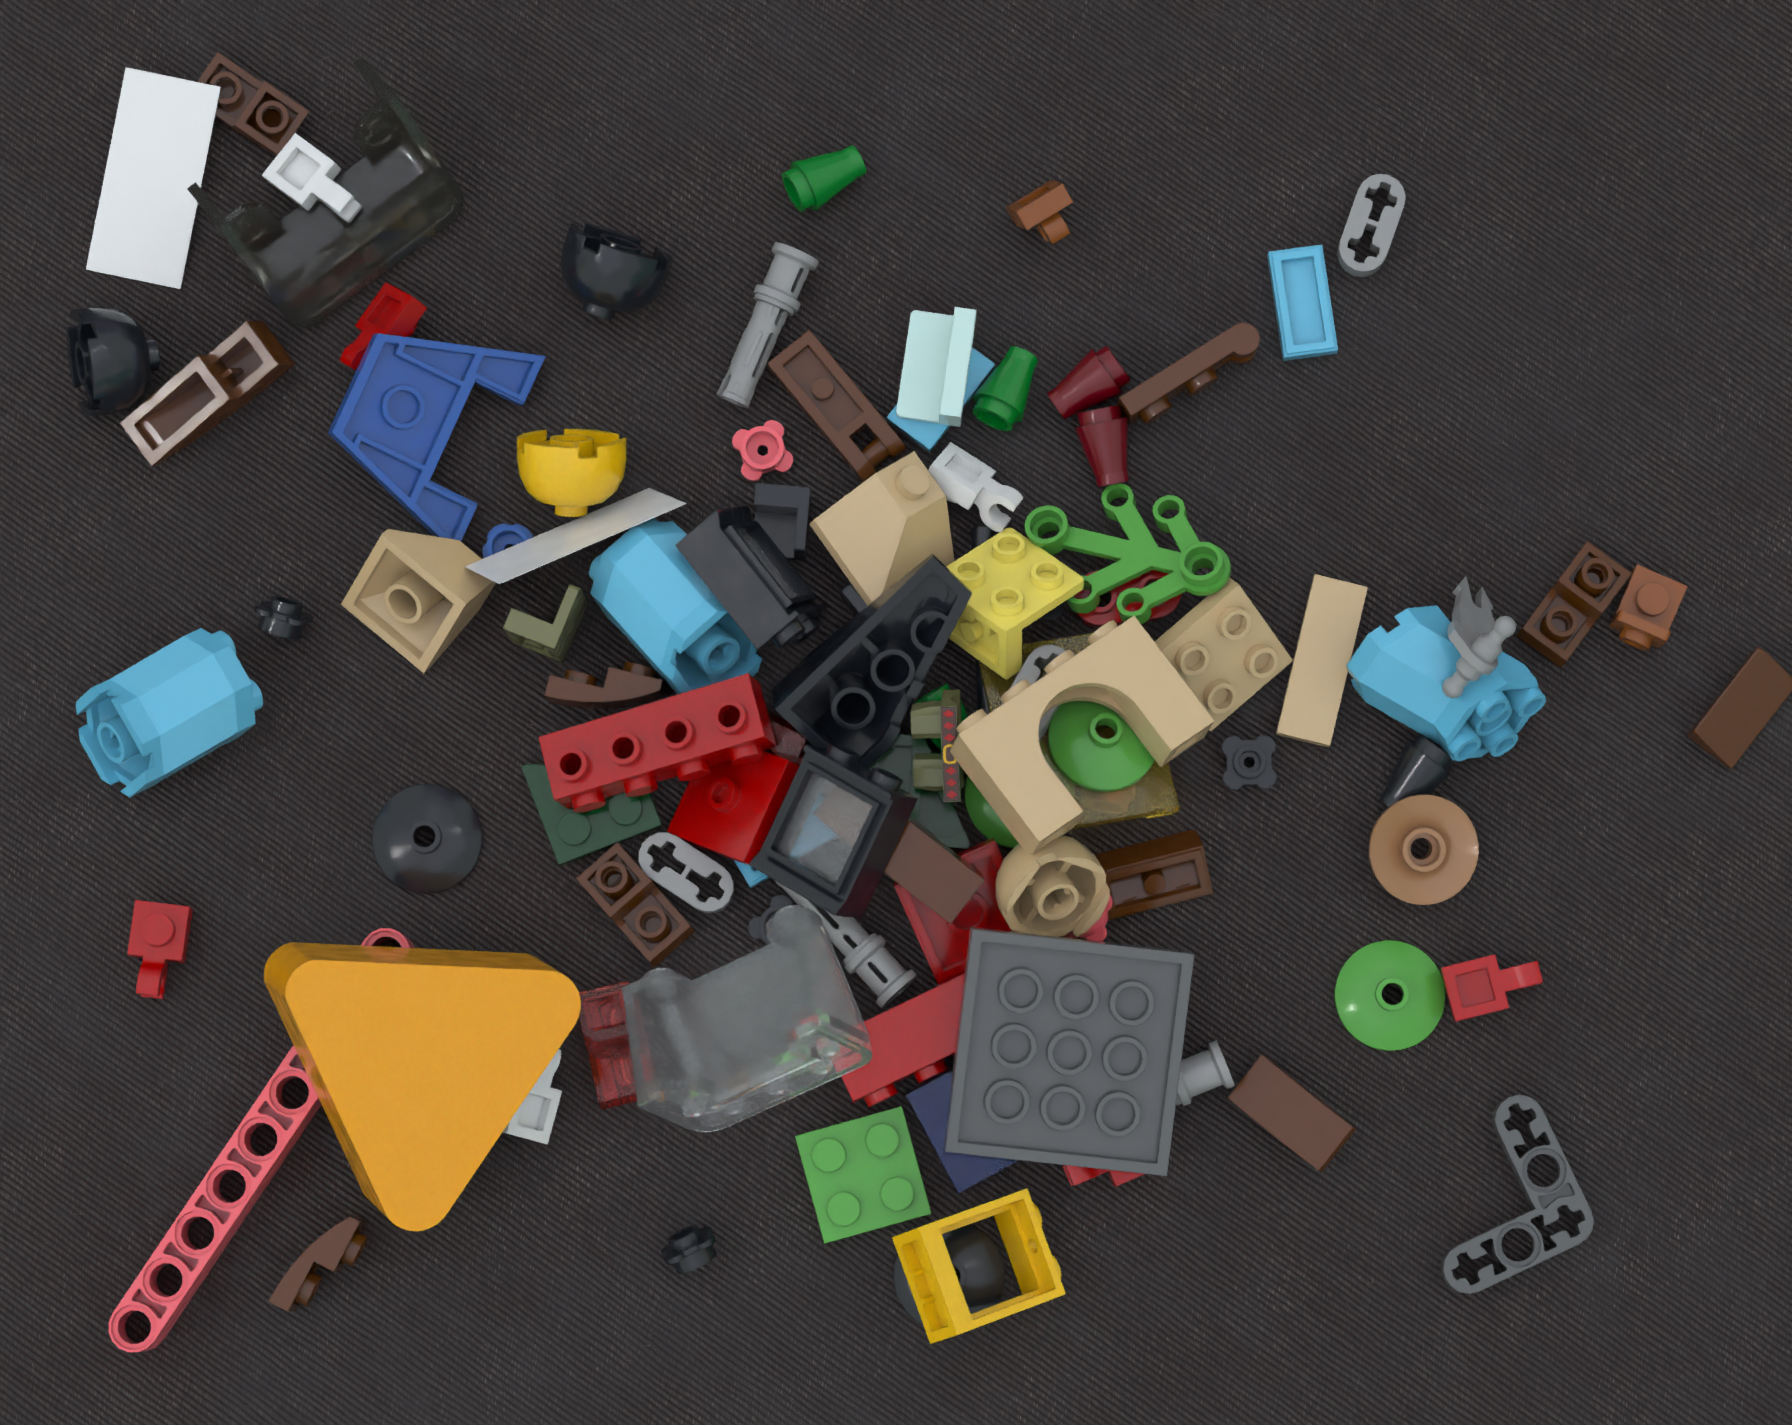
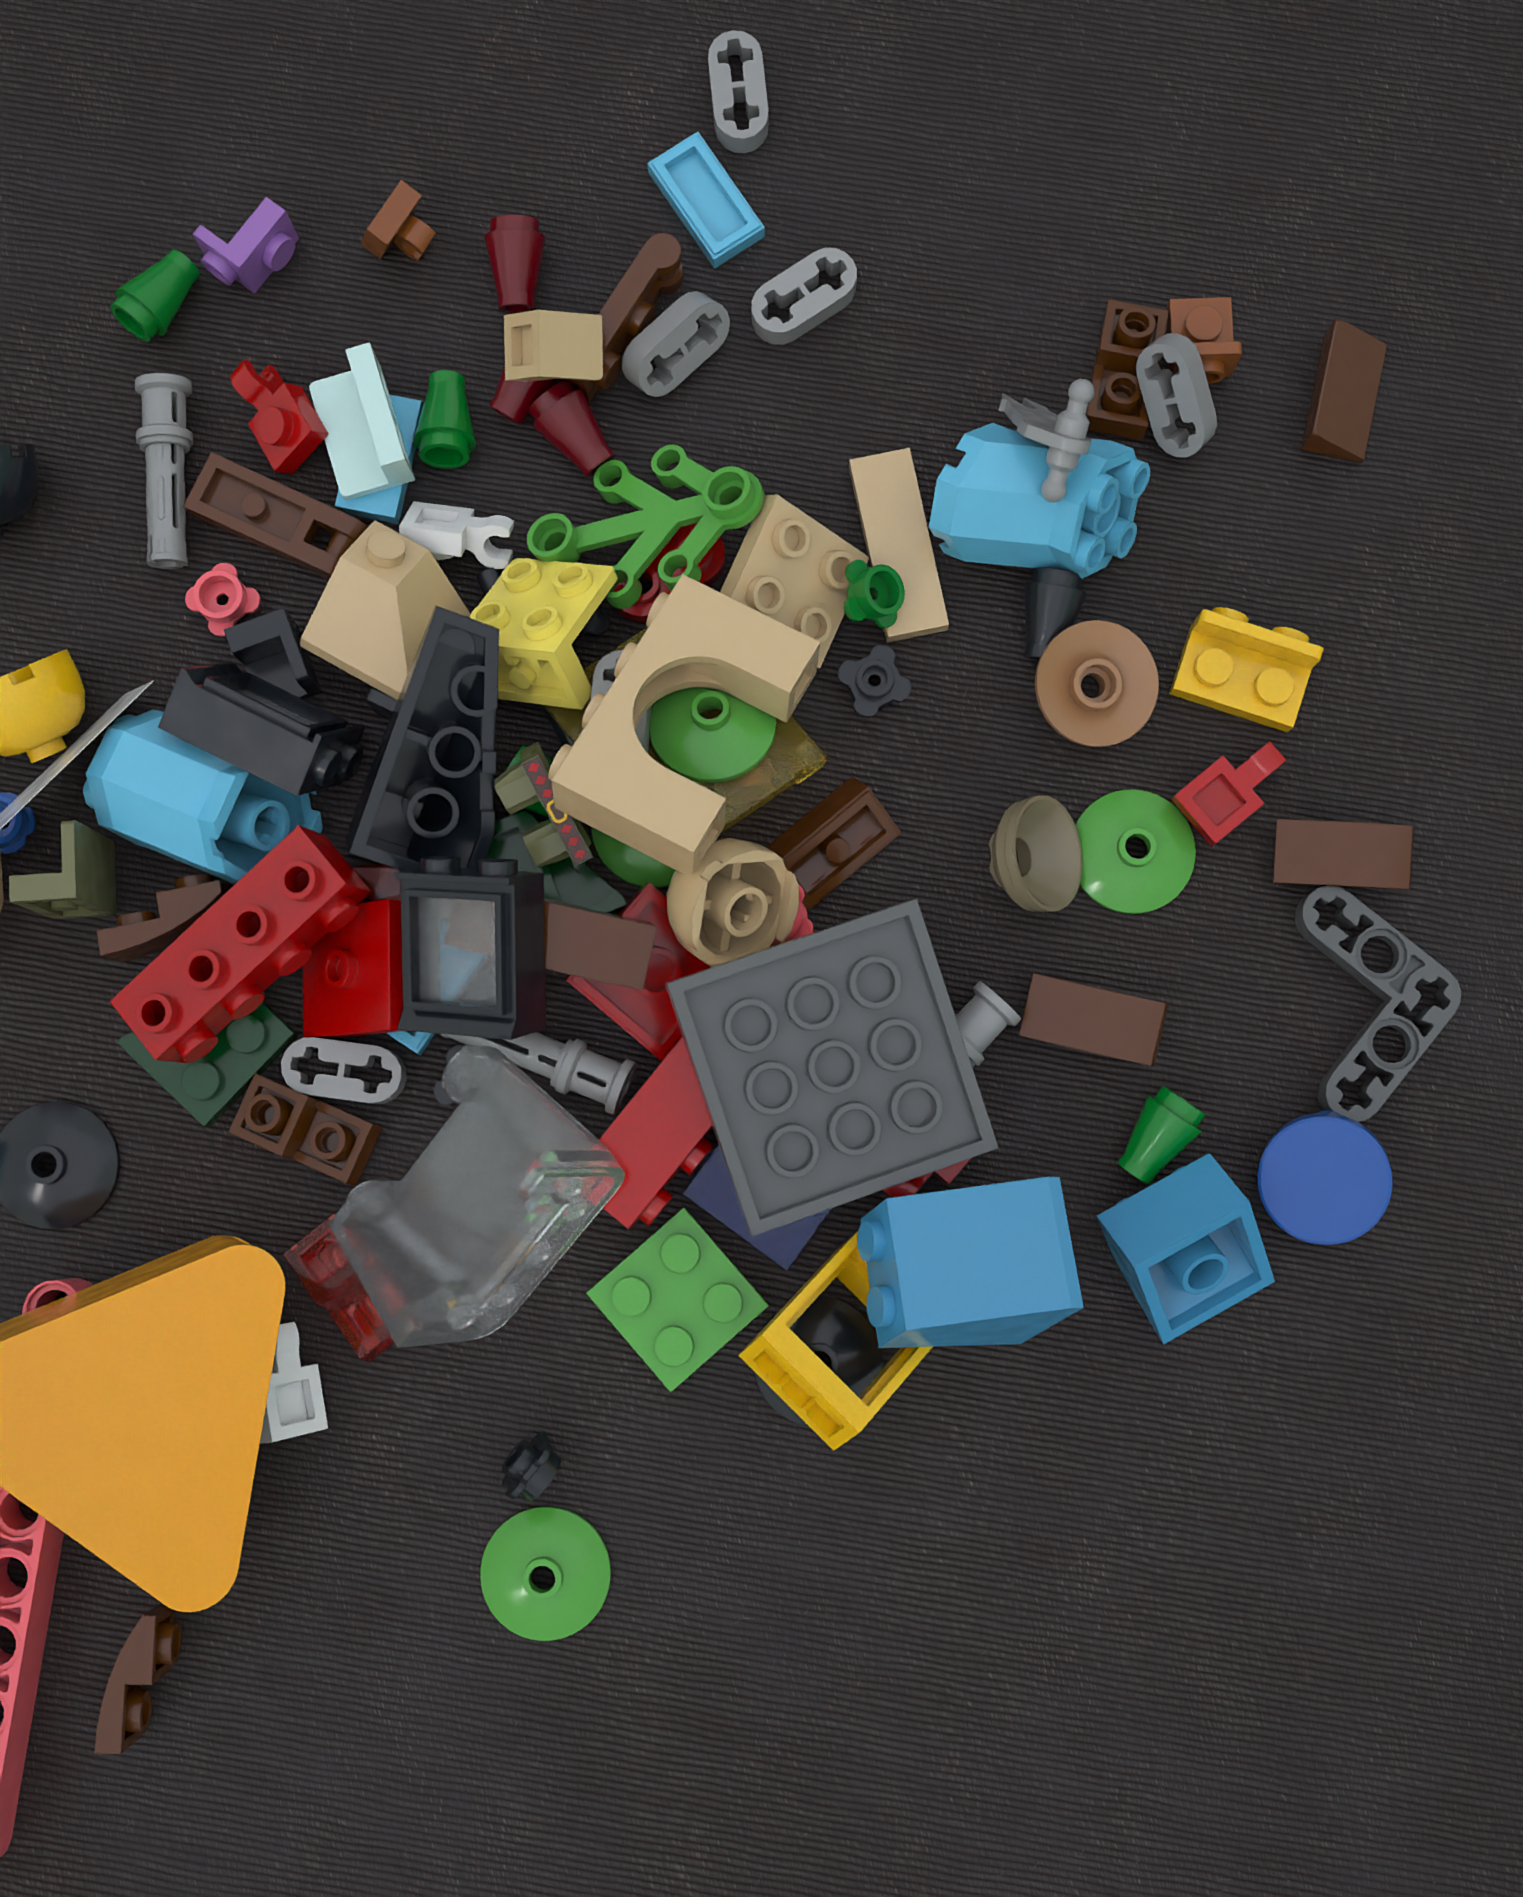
camera: 25 degrees left, 0 degrees up
(691, 1330) = (566, 1546): none -> bright green dish
(880, 329) = (285, 418): none -> red plate
(926, 178) = (254, 252): none -> medium lavender bracket
(1099, 1253) = (970, 1265): none -> dark azure slope
(1119, 380) = (553, 346): none -> tan panel
(1123, 284) = (515, 260): none -> dark red cone
(1220, 414) = (675, 343): none -> light grey beam
(1278, 1325) = (1187, 1247): none -> dark azure slope
(1291, 697) = (886, 593): none -> green plate
(1301, 1227) = (1160, 1134): none -> green cone
(1320, 964) = (1046, 851): none -> dark tan piece
(1345, 433) = (795, 285): none -> light grey beam
(1411, 1322) = (1325, 1178): none -> blue tile
(1549, 893) = (1245, 668): none -> yellow bracket
(1553, 1078) = (1343, 854): none -> reddish brown slope
(1599, 641) = (1176, 395): none -> light grey beam

